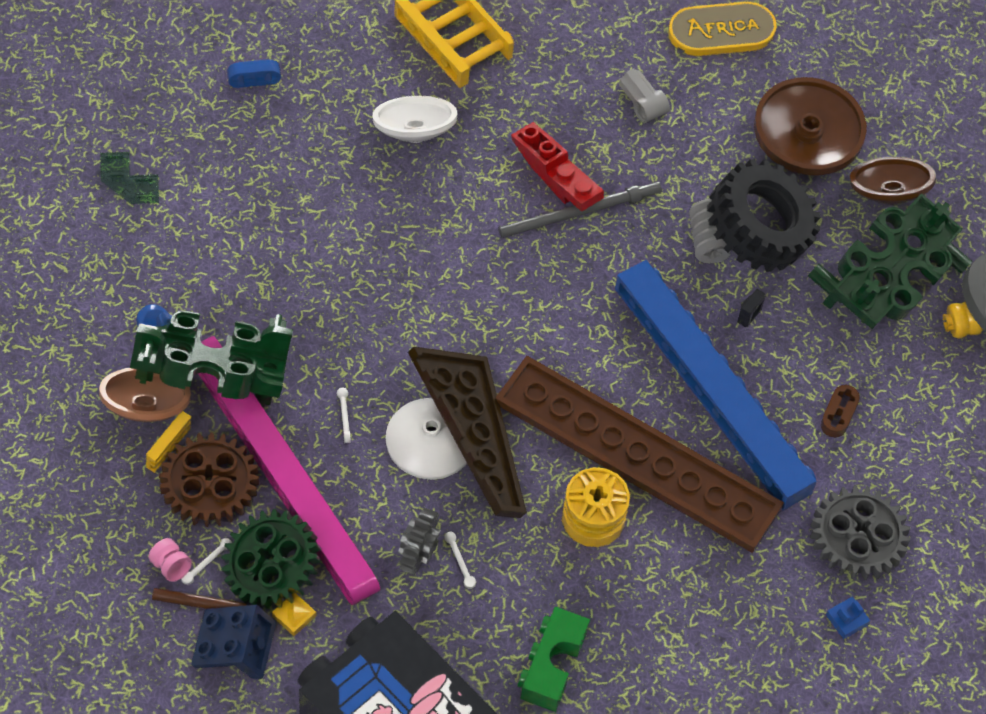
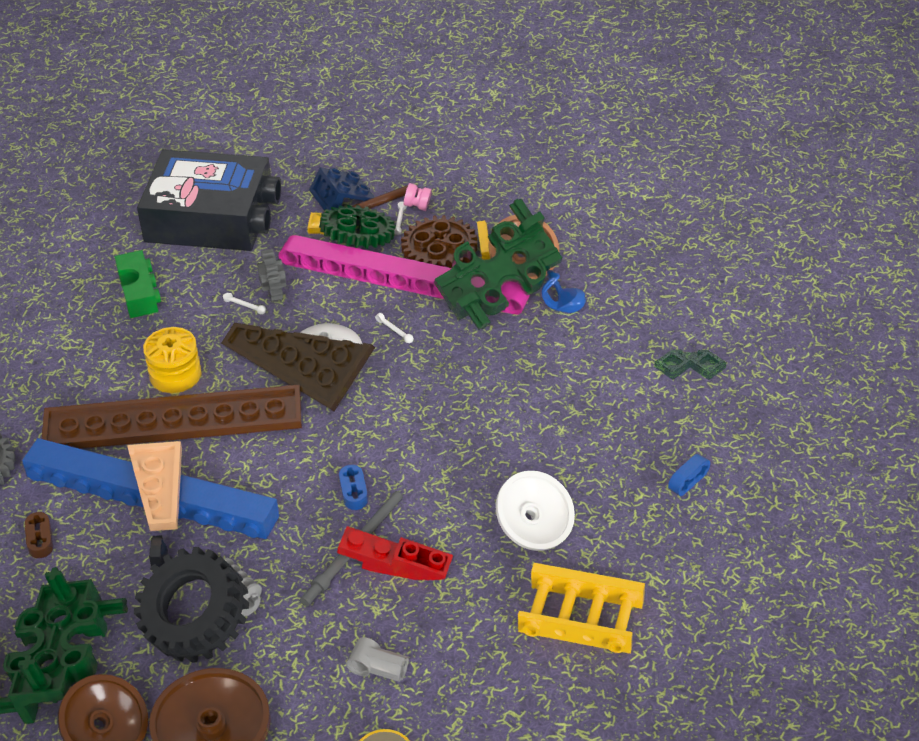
camera: 150 degrees right, 15 degrees down
(527, 261) = (358, 486): none -> blue beam
(710, 354) = (158, 479): none -> light nougat wing

